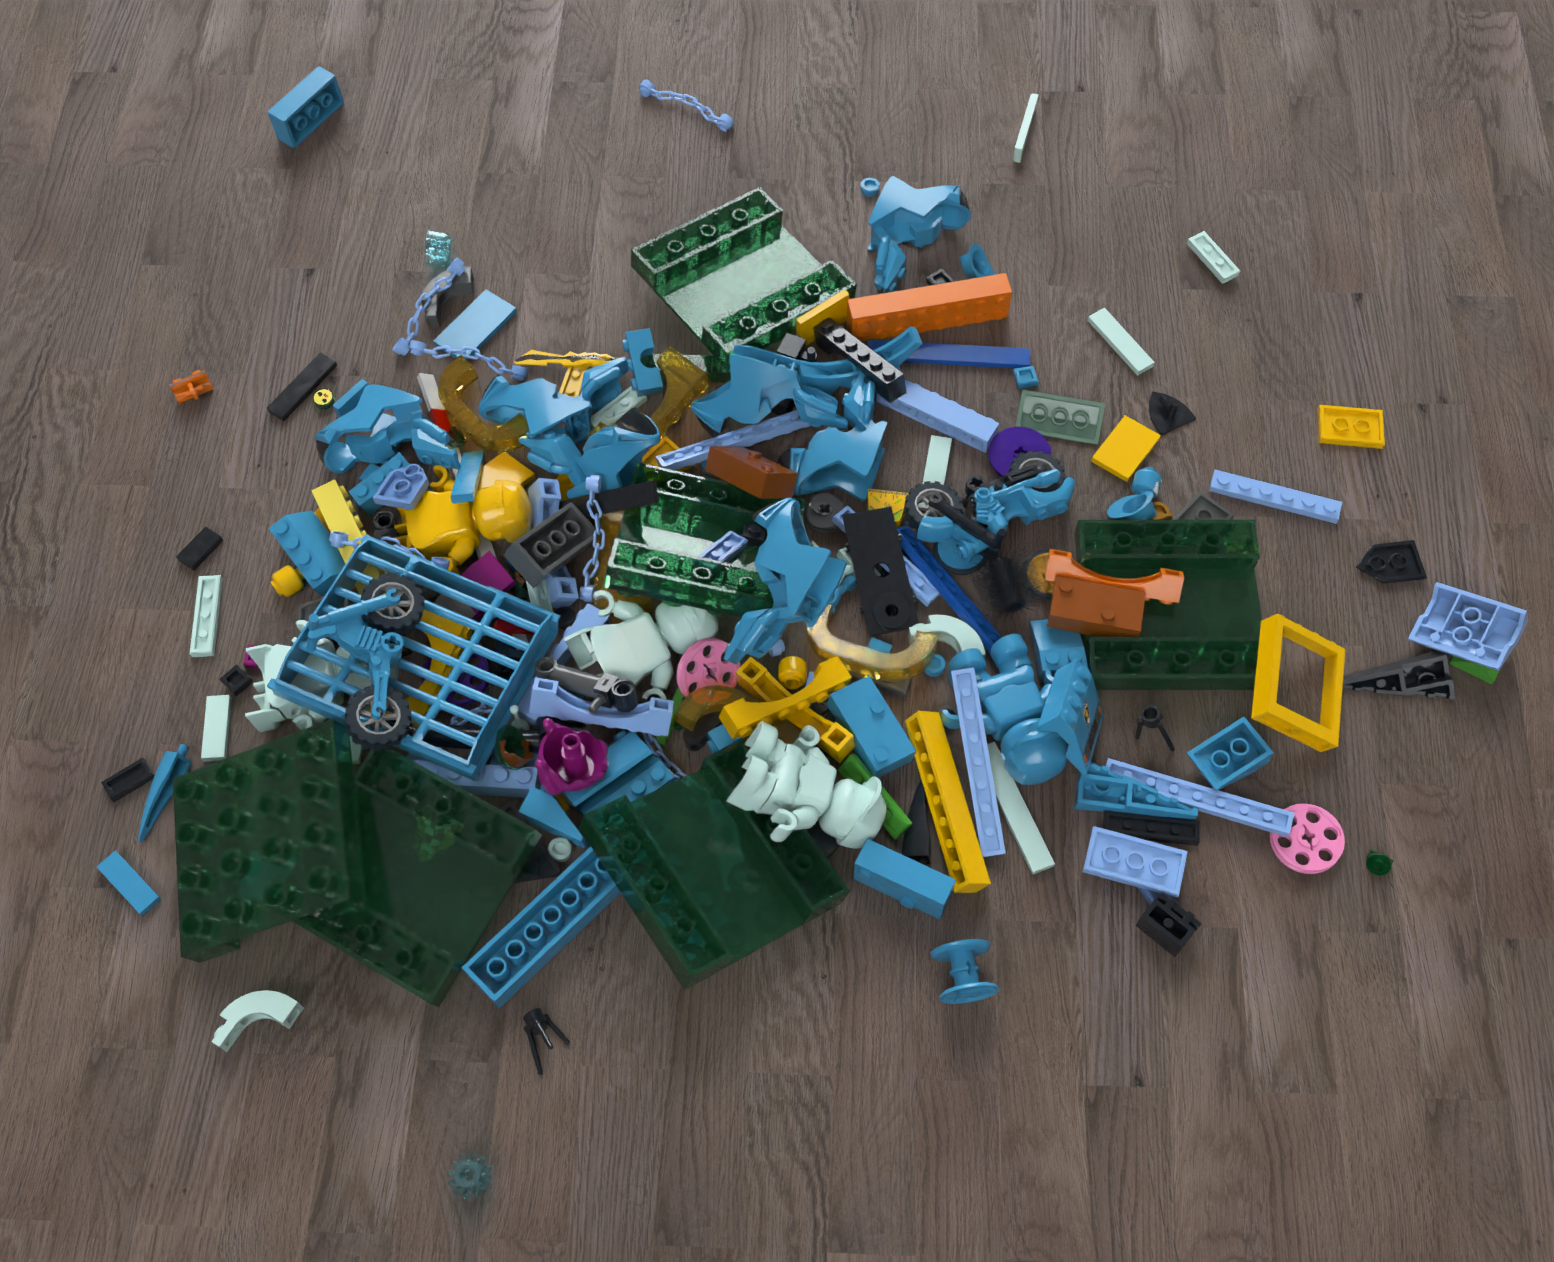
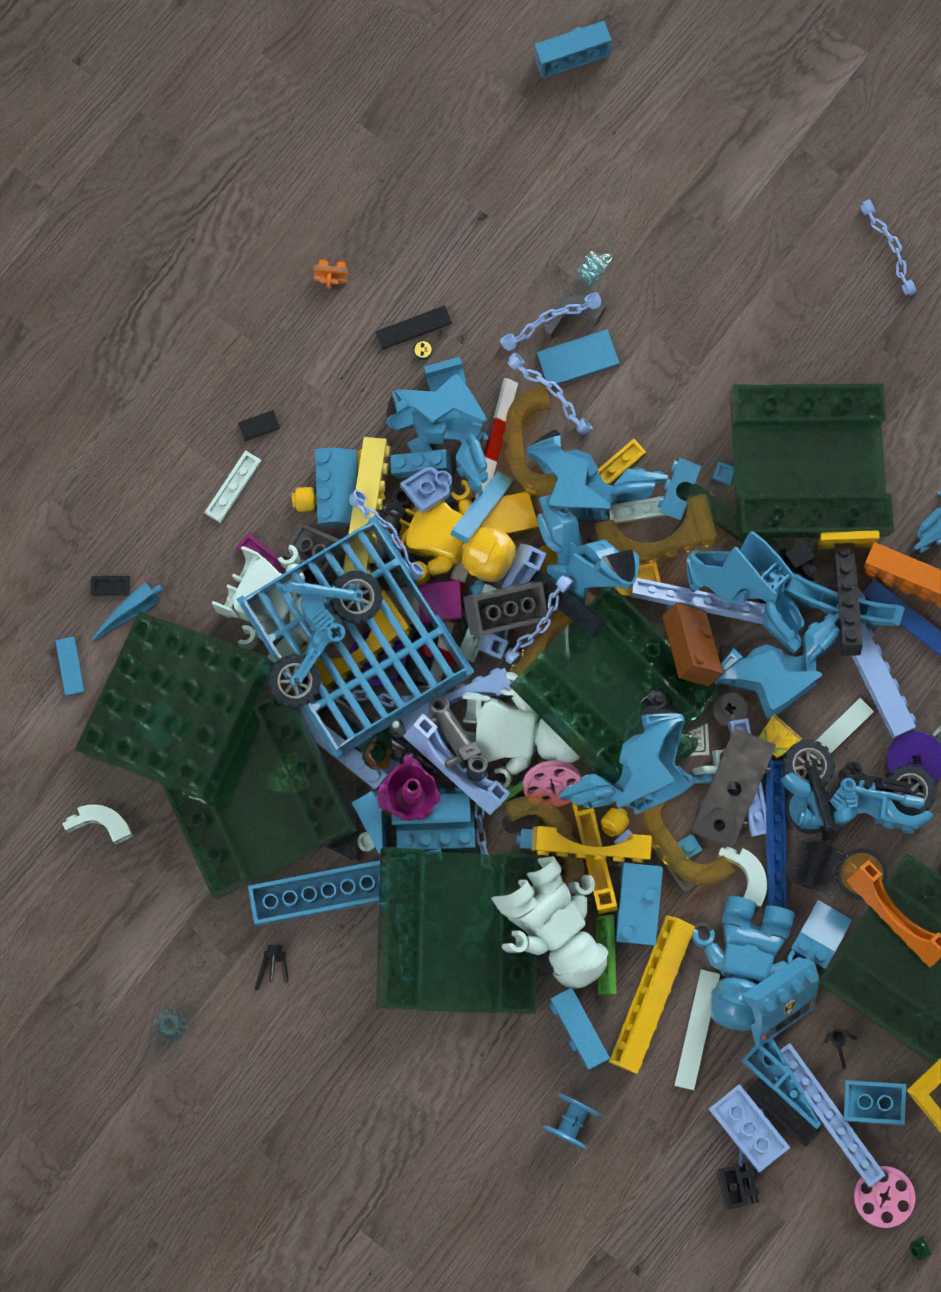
camera: 40 degrees right, 15 degrees up
(216, 728) = (190, 585): light aqua tile -> none
(236, 680) = (224, 557): black plate -> none
(456, 438) = (497, 455): tile -> none
(567, 617) = (483, 664): black tile -> none
(571, 359) = (630, 442): yellow sword -> none
(674, 338) = (723, 473): none -> dark azure tile
(726, 547) = (621, 702): medium blue tile -> none
(917, 838) = (613, 1005): black piece -> none
(936, 667) = (723, 888): dark azure tile -> none
(978, 762) = (691, 984): light blue plate -> none
(1095, 609) = (866, 930): dark orange brick -> none

